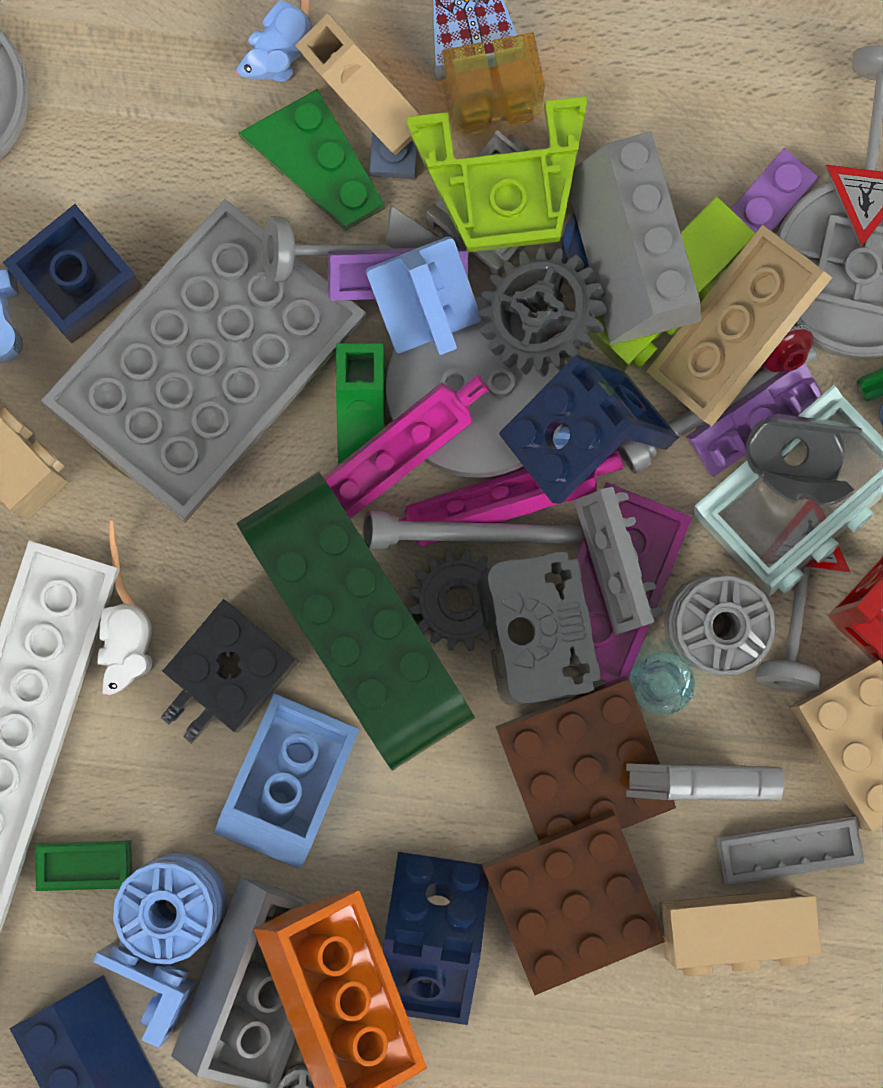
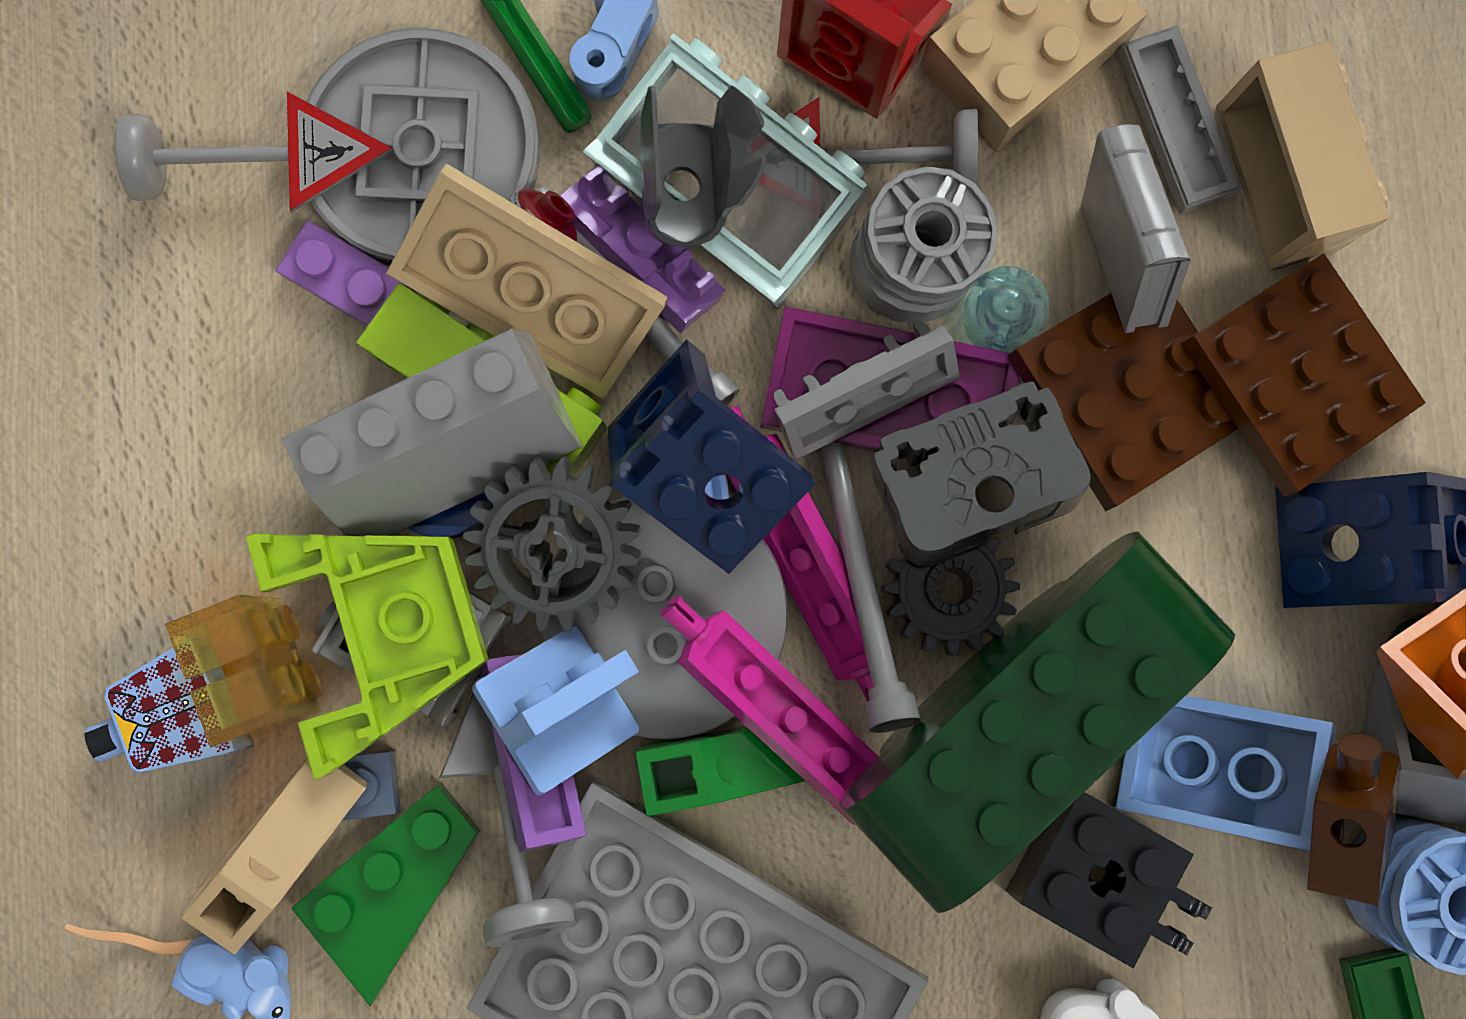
camera: 105 degrees left, 0 degrees up
(238, 849) = (1359, 786): none -> reddish brown torso

